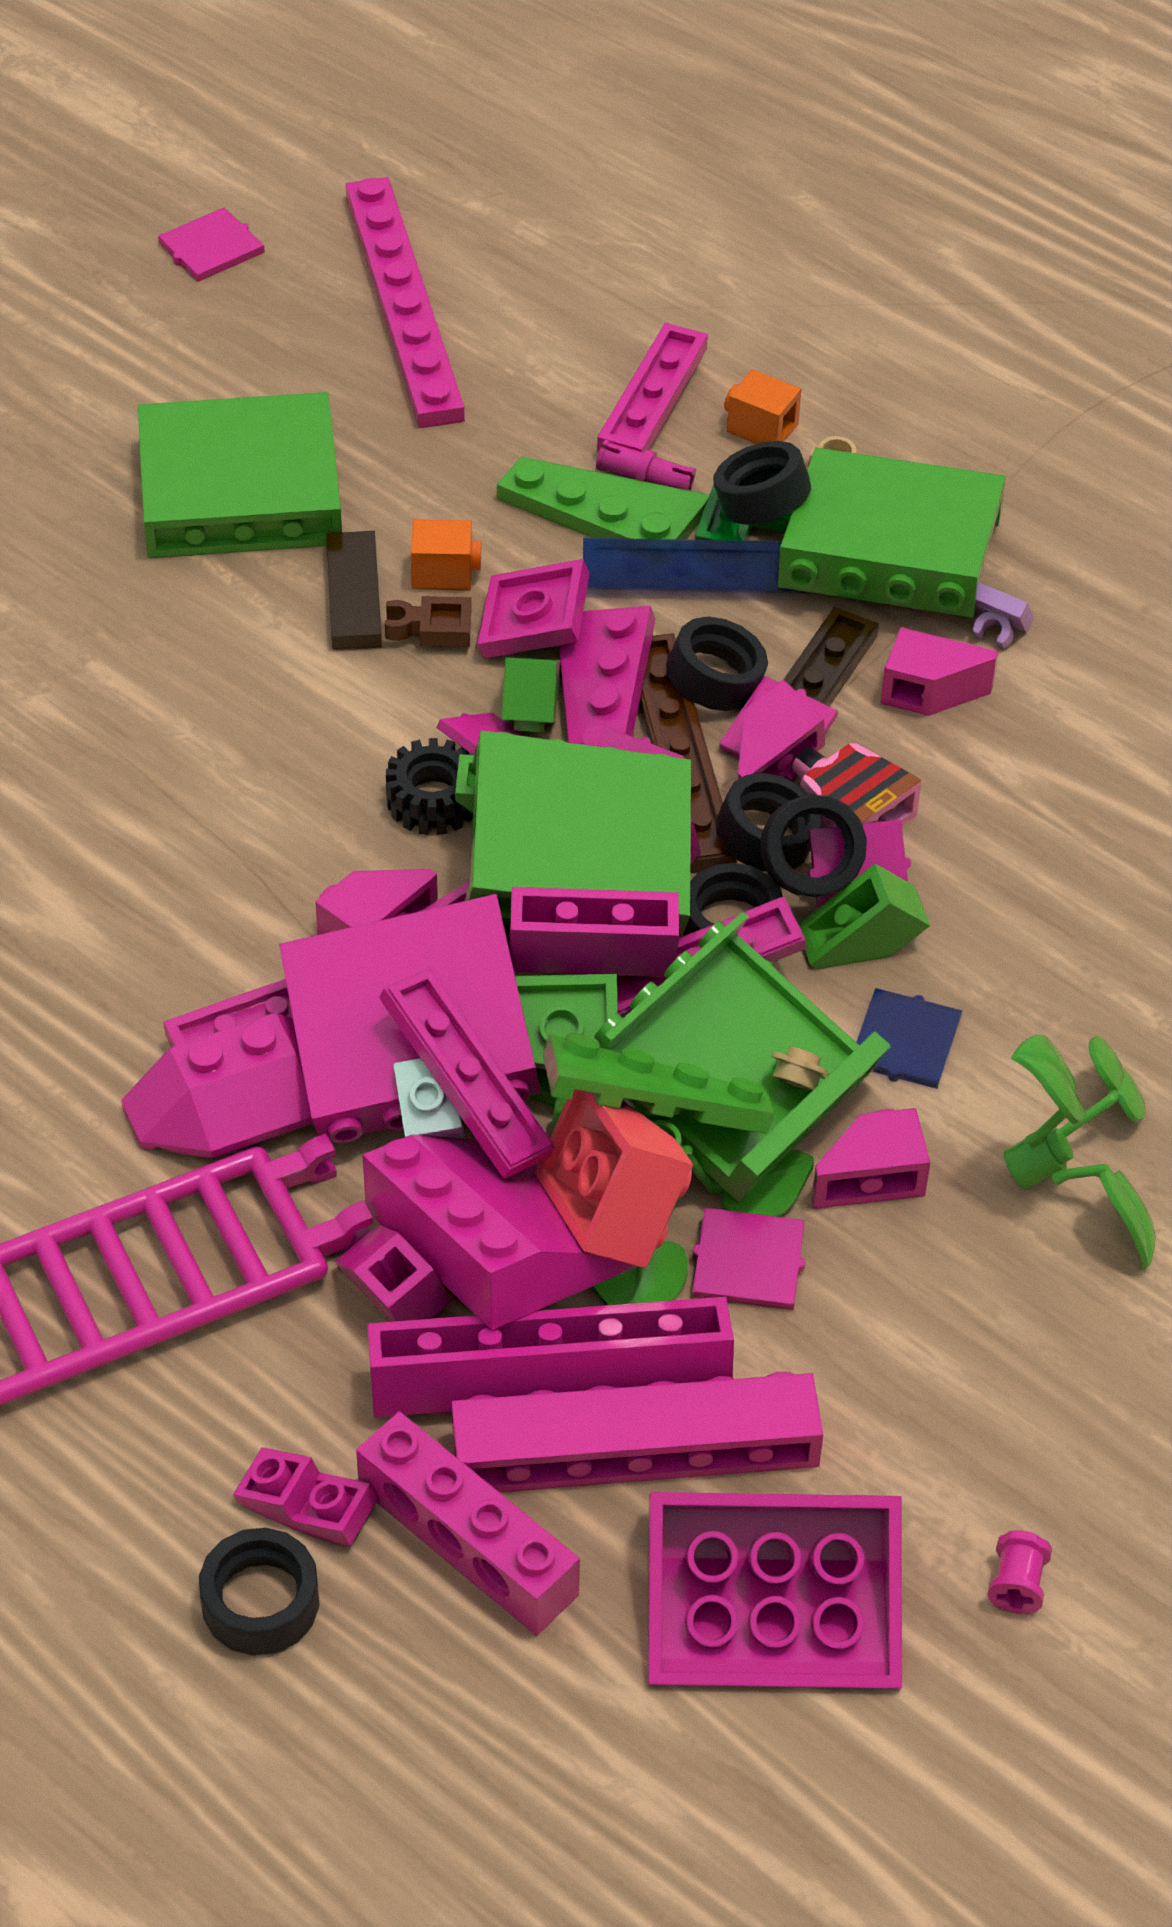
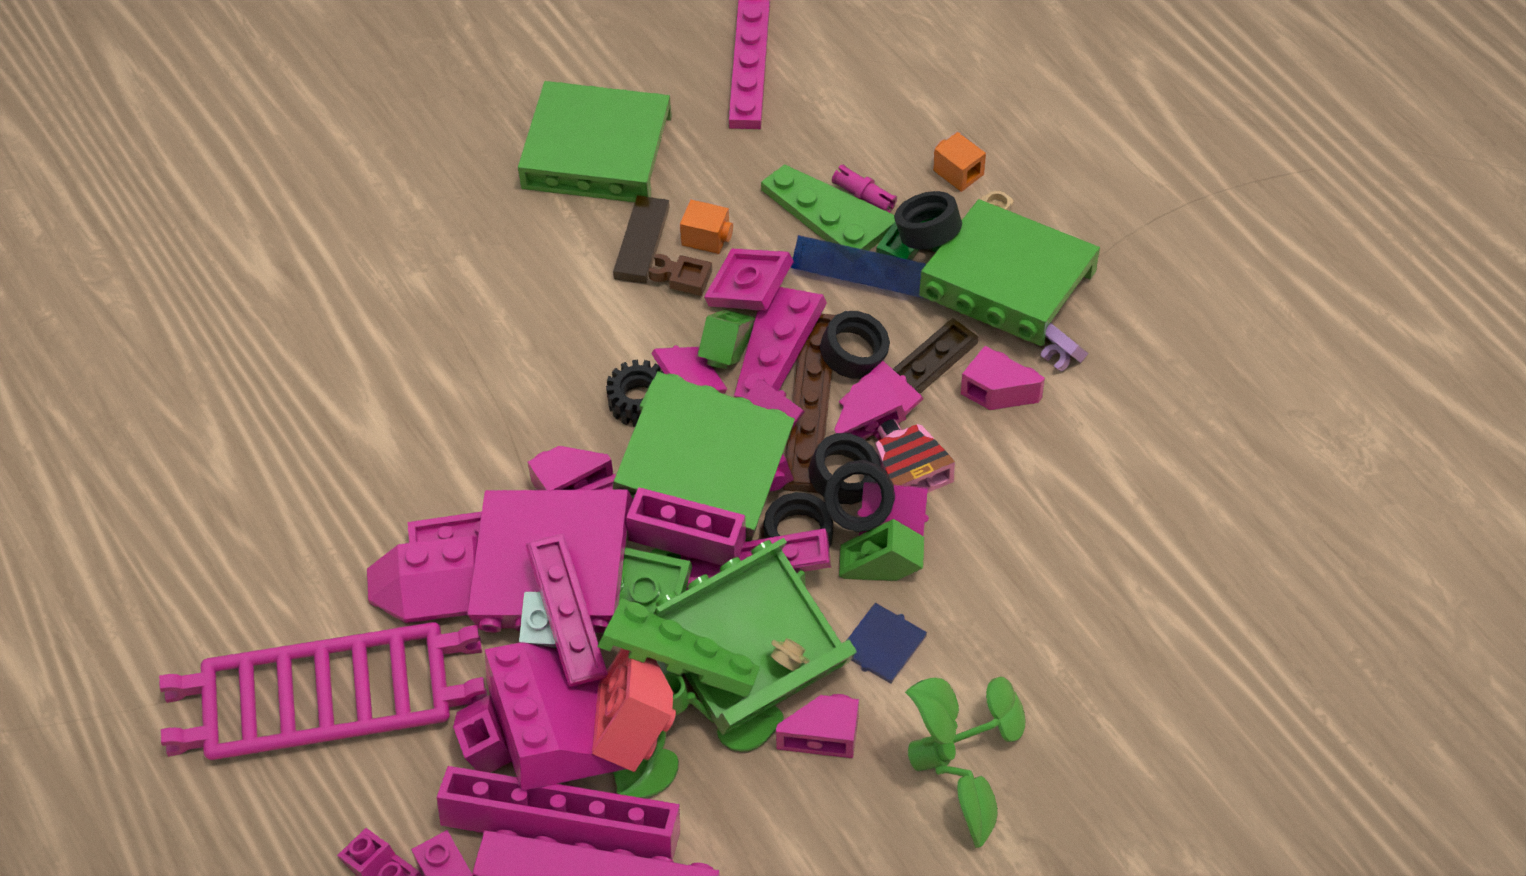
camera: 20 degrees right, 5 degrees up
(654, 388) = (892, 131): dark pink plate -> none
(748, 1258) = (718, 775): dark pink piece -> none

